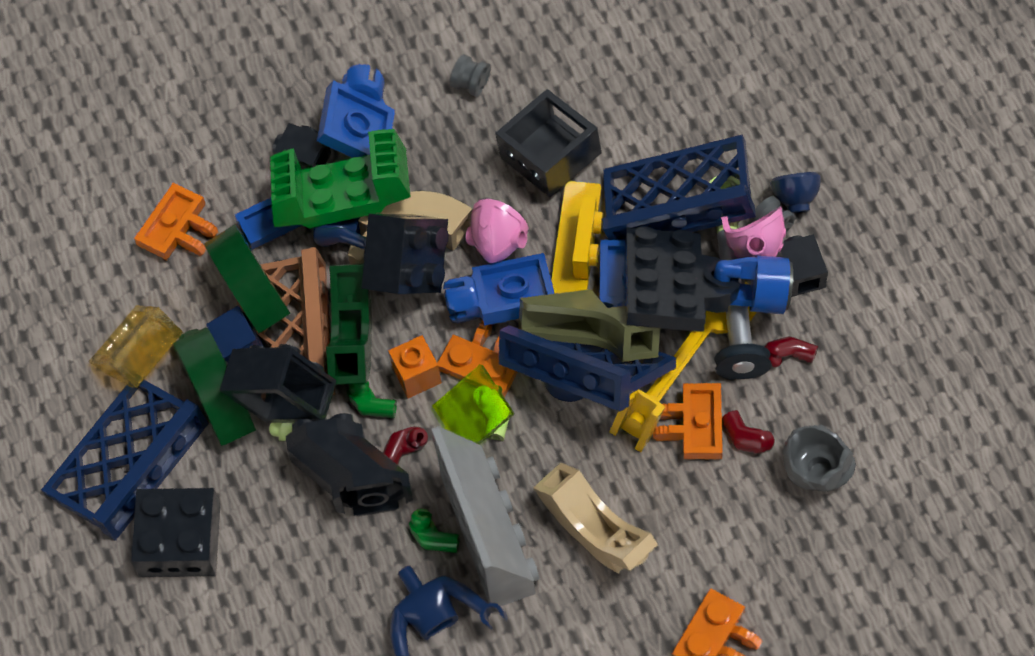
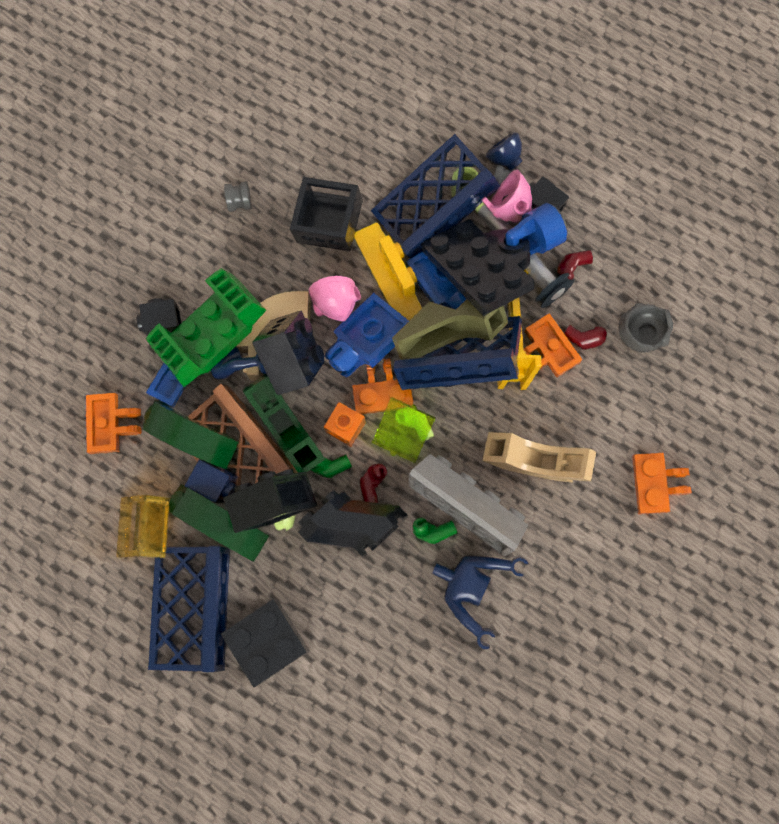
camera: 35 degrees left, 15 degrees up
(353, 111) = (180, 270): blue plate -> none

